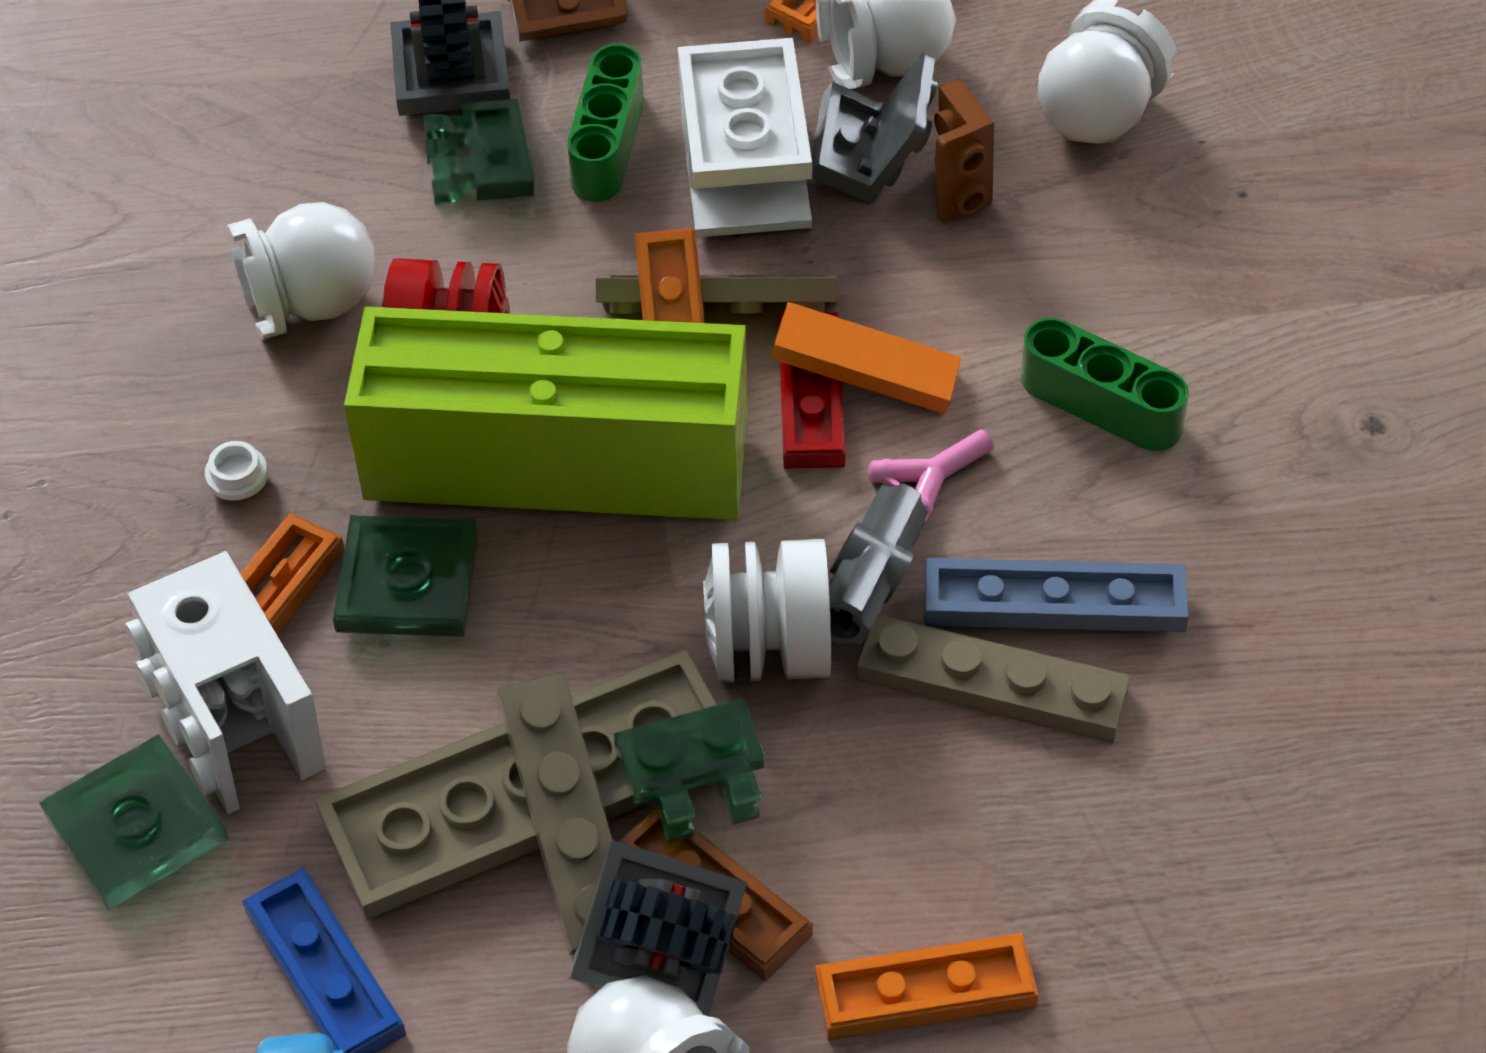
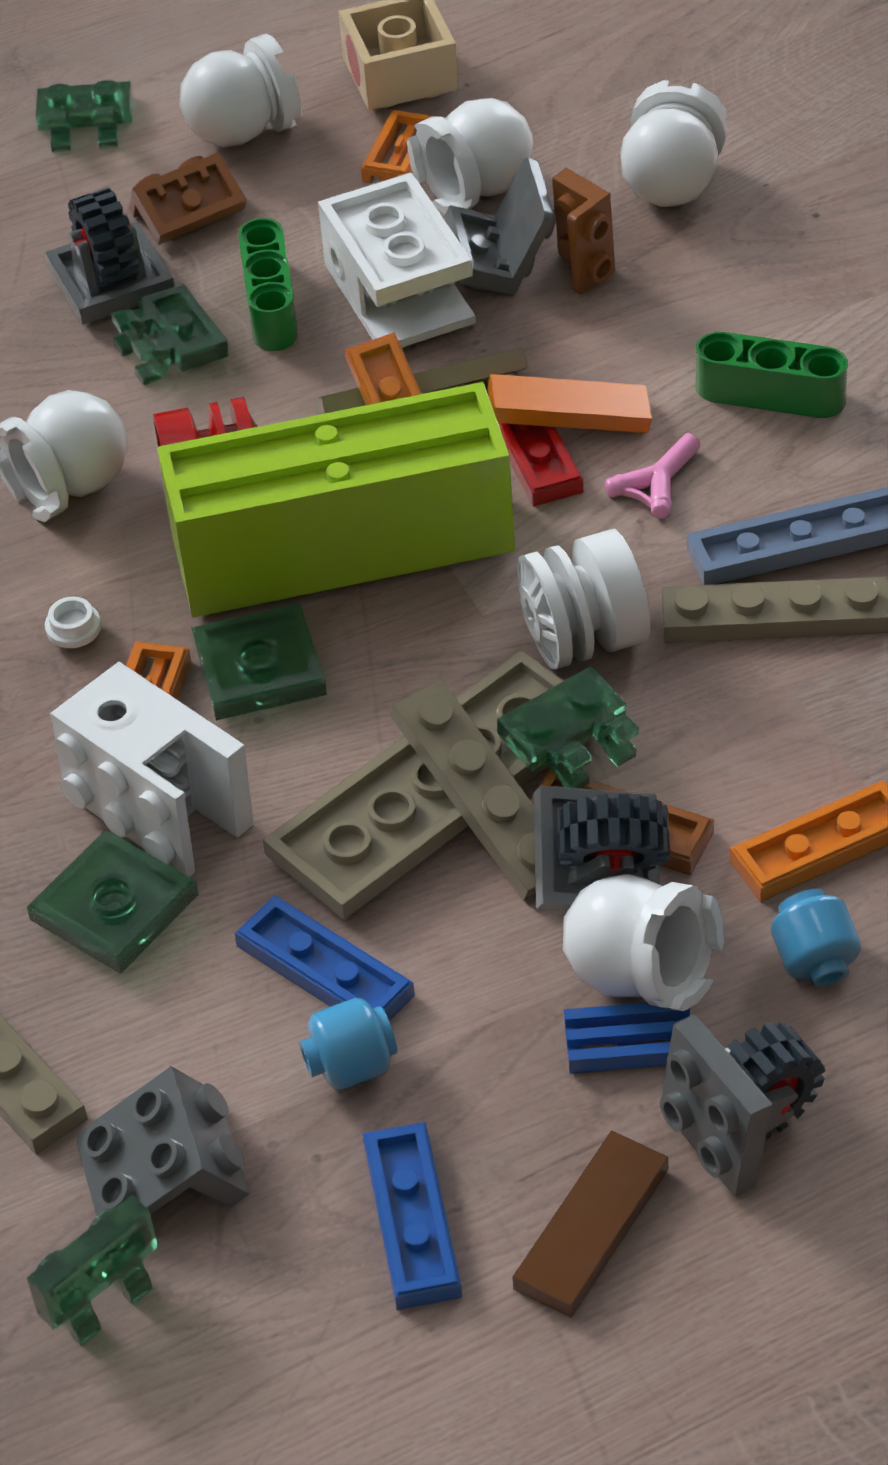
camera: 15 degrees left, 5 degrees down
(873, 561) = (651, 538): dark grey piece -> none

